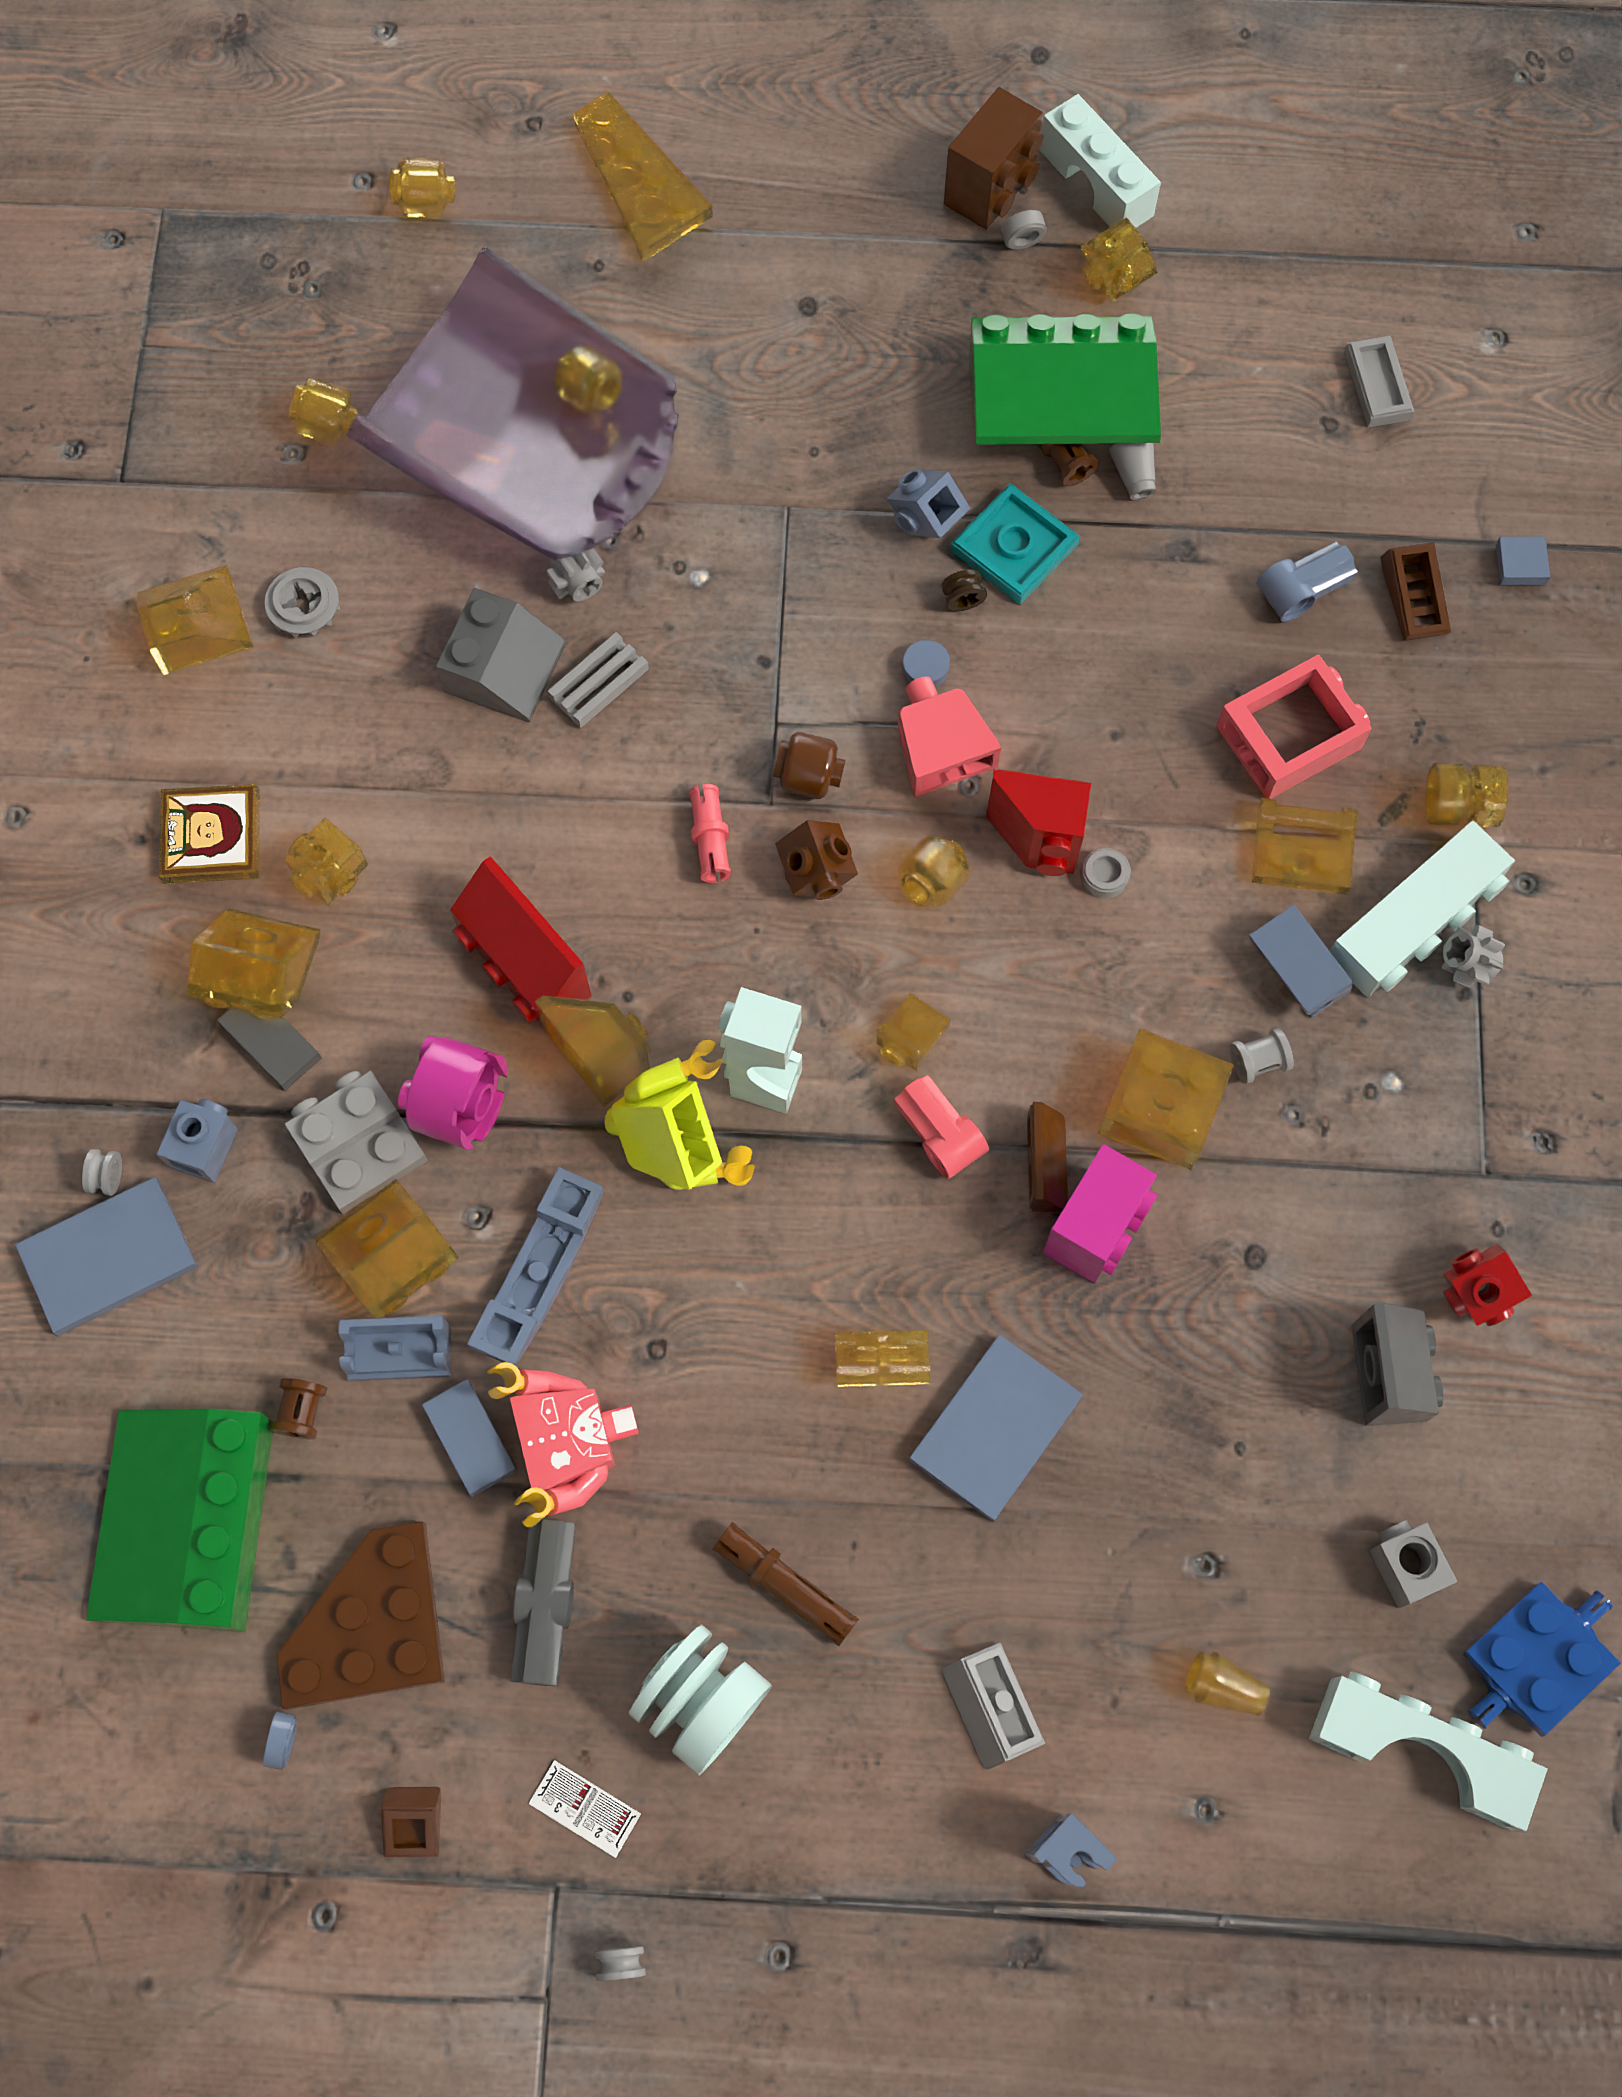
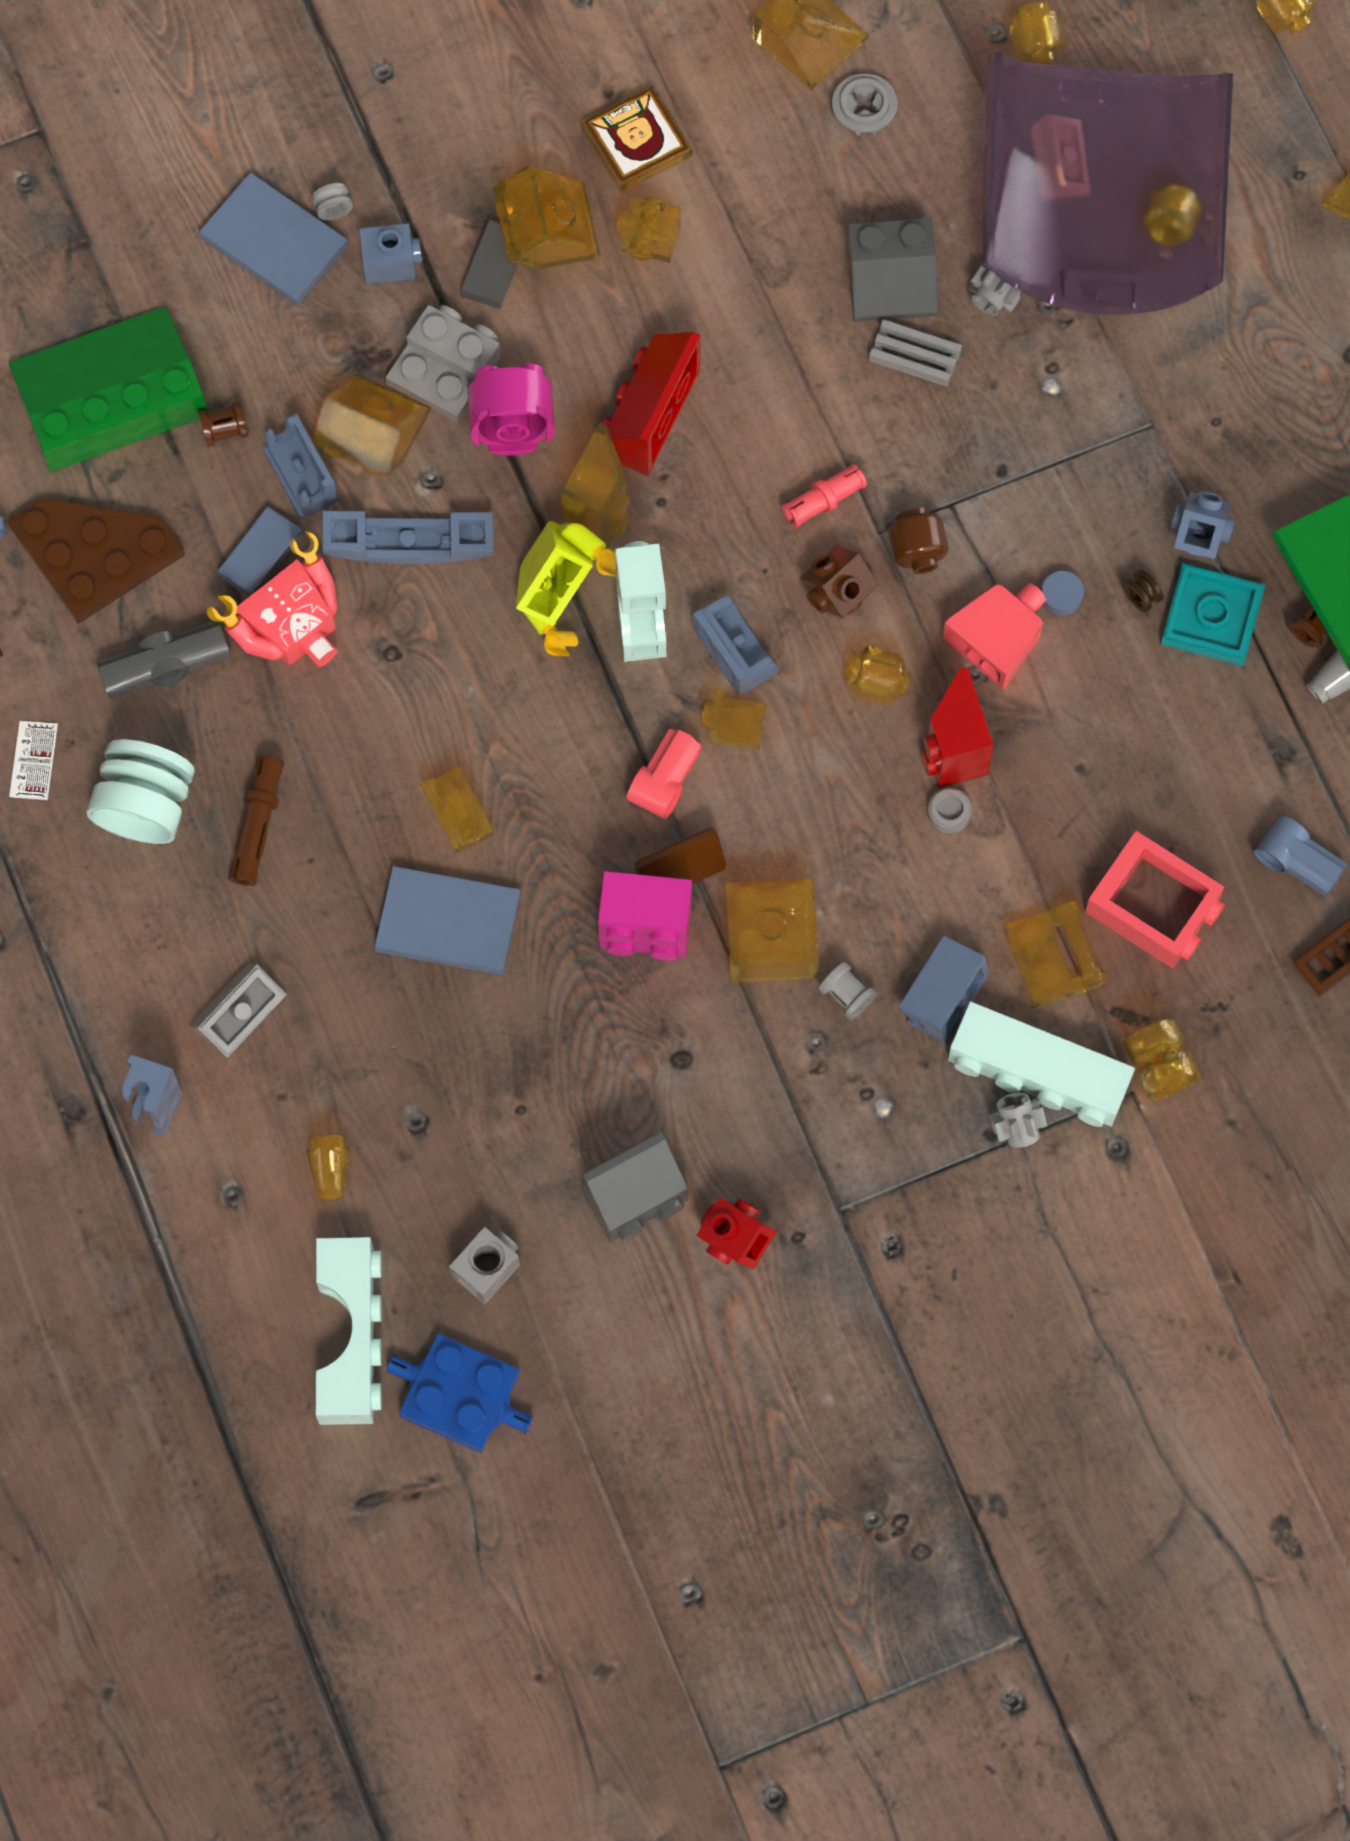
camera: 65 degrees right, 0 degrees up
(834, 995) = (733, 645): none -> sand blue hinge

